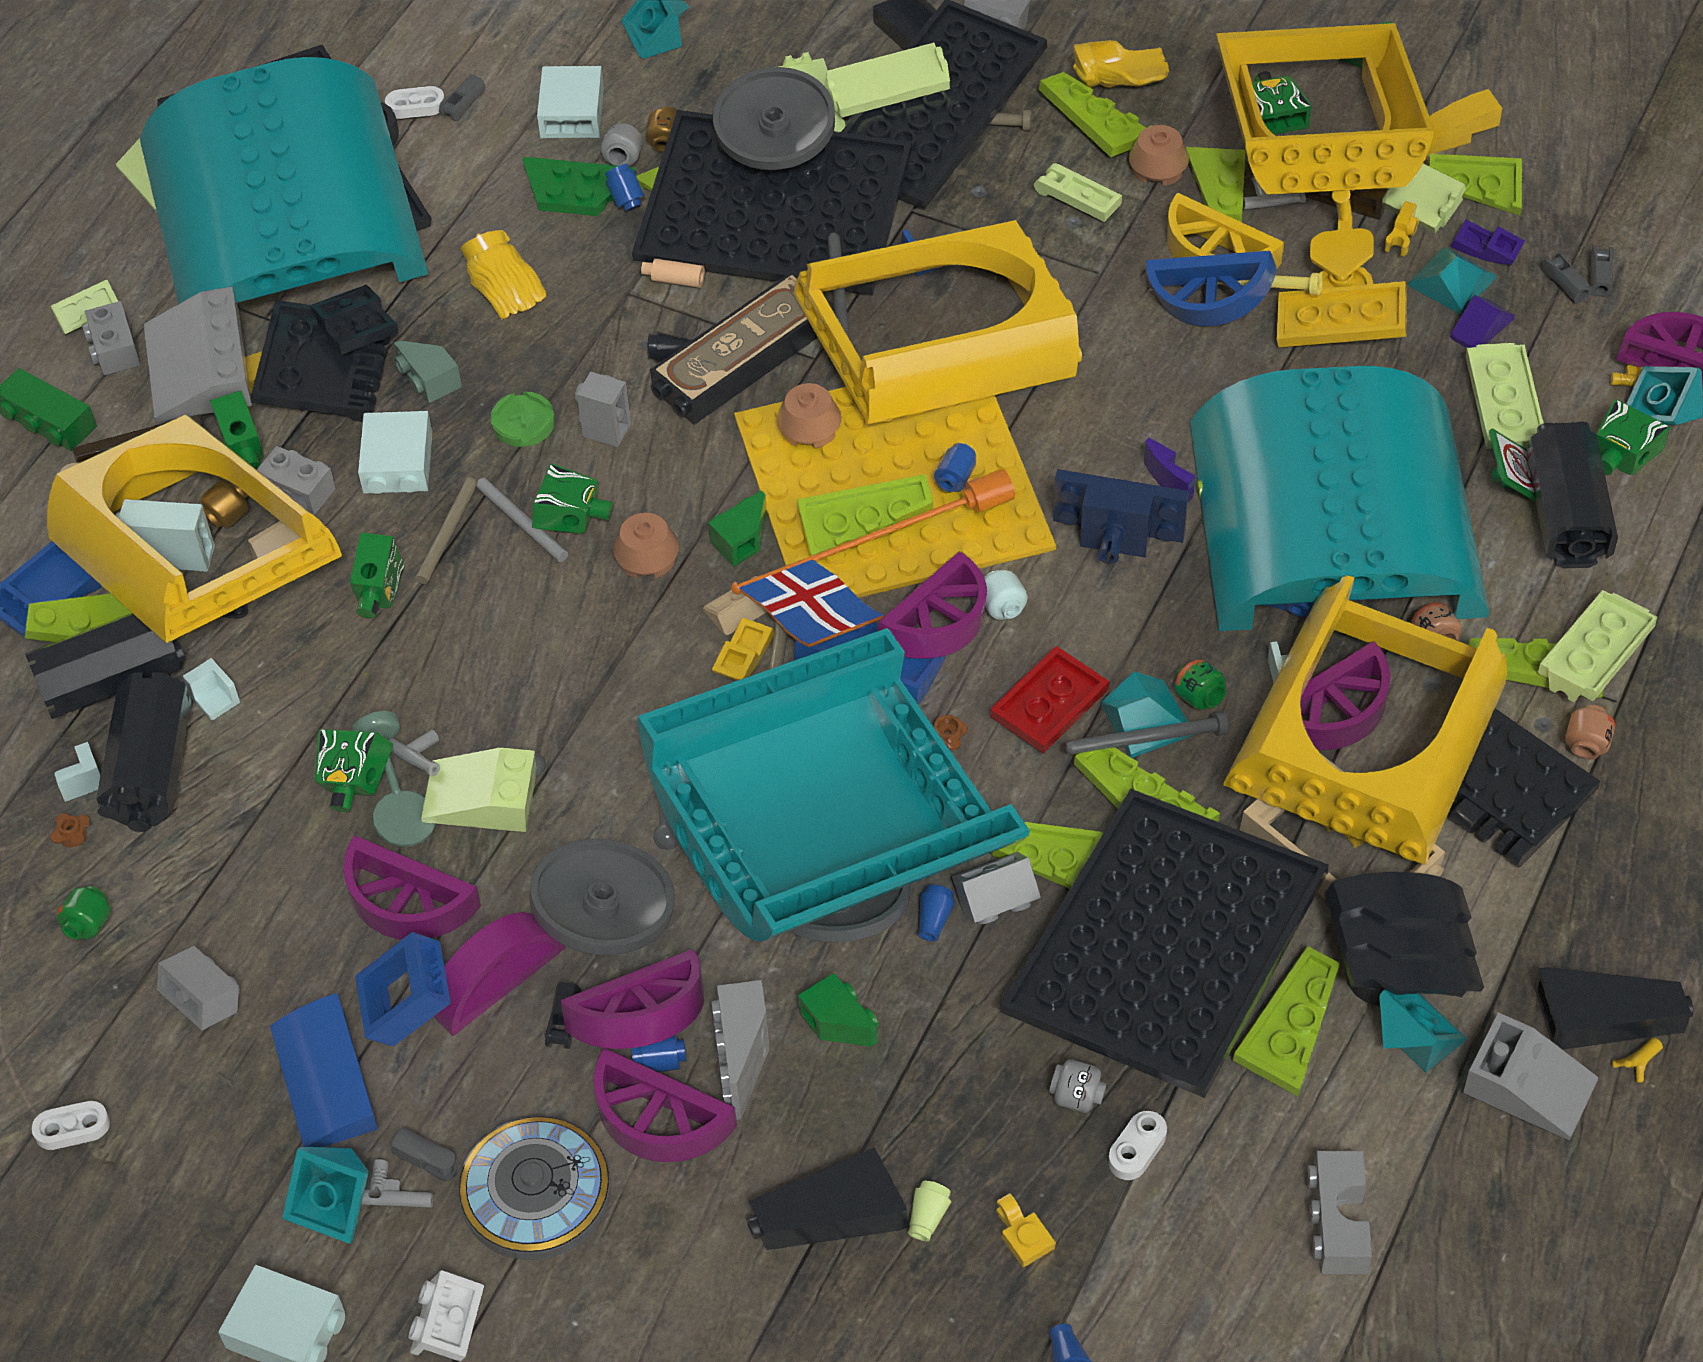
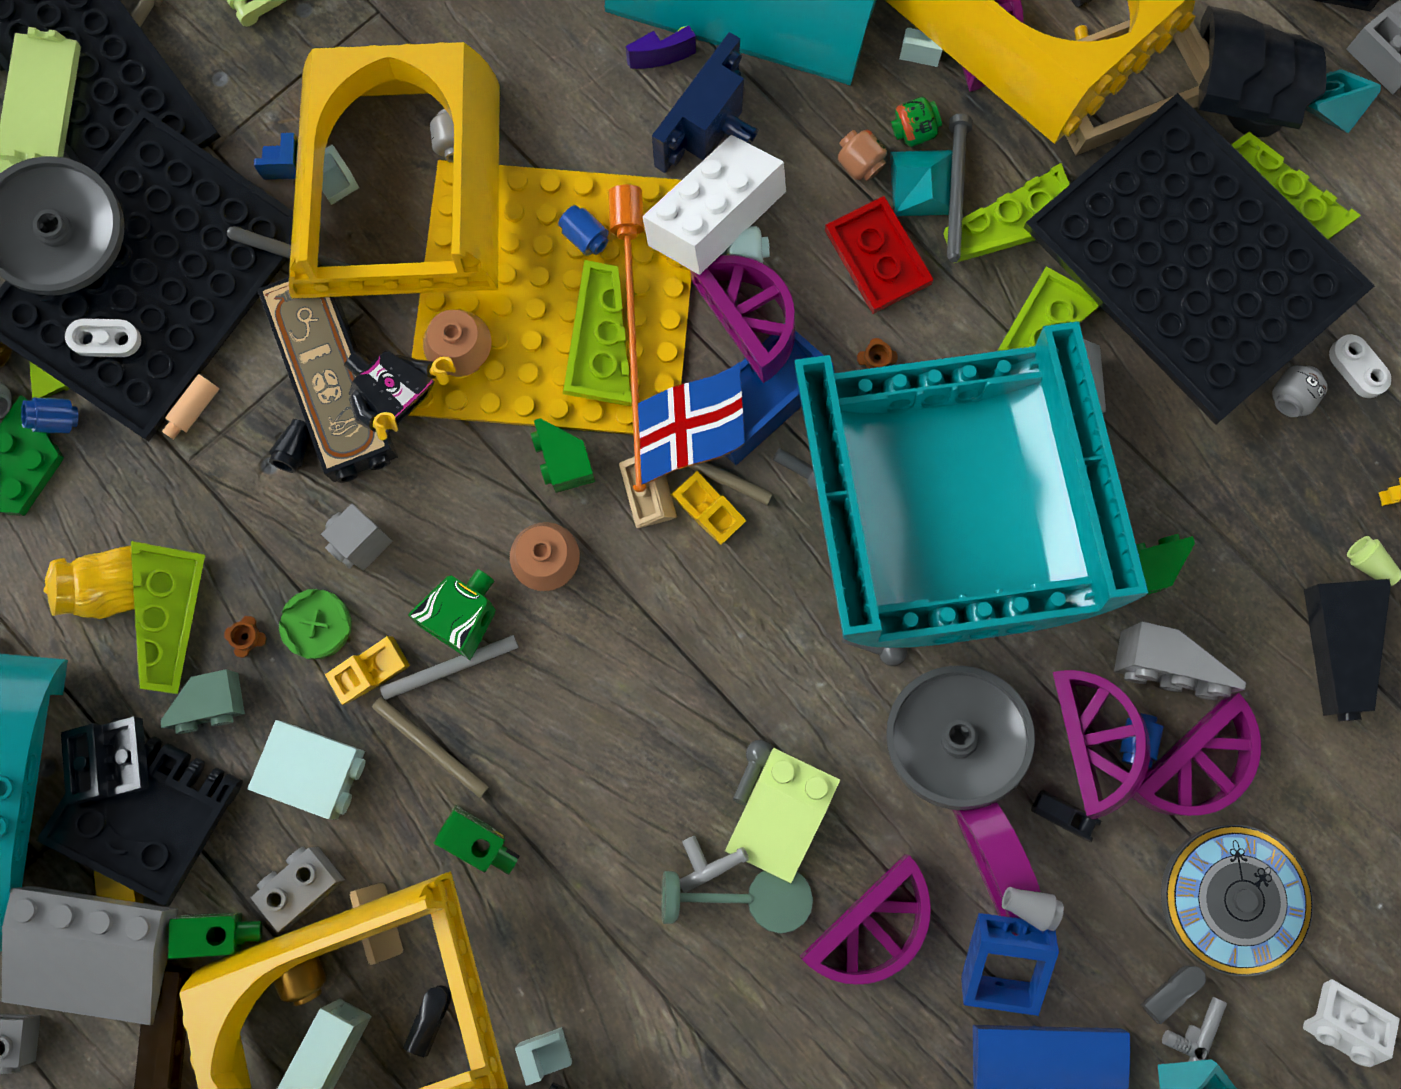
camera: 70 degrees left, 25 degrees up
(350, 764) = (707, 938): green torso -> none
(457, 971) = (1036, 908): none -> light grey cone
(492, 376) = (245, 626): none -> dark orange plate
(493, 463) = (368, 670): none -> yellow slope
(499, 314) = (164, 607): none -> lime wing
(702, 192) = (105, 337): none -> white plate
(739, 380) = (391, 387): none -> torso
(926, 290) = (336, 176): none -> light aqua panel
(1025, 546) = (715, 204): none -> white brick
(1142, 651) = (862, 154): none -> nougat head

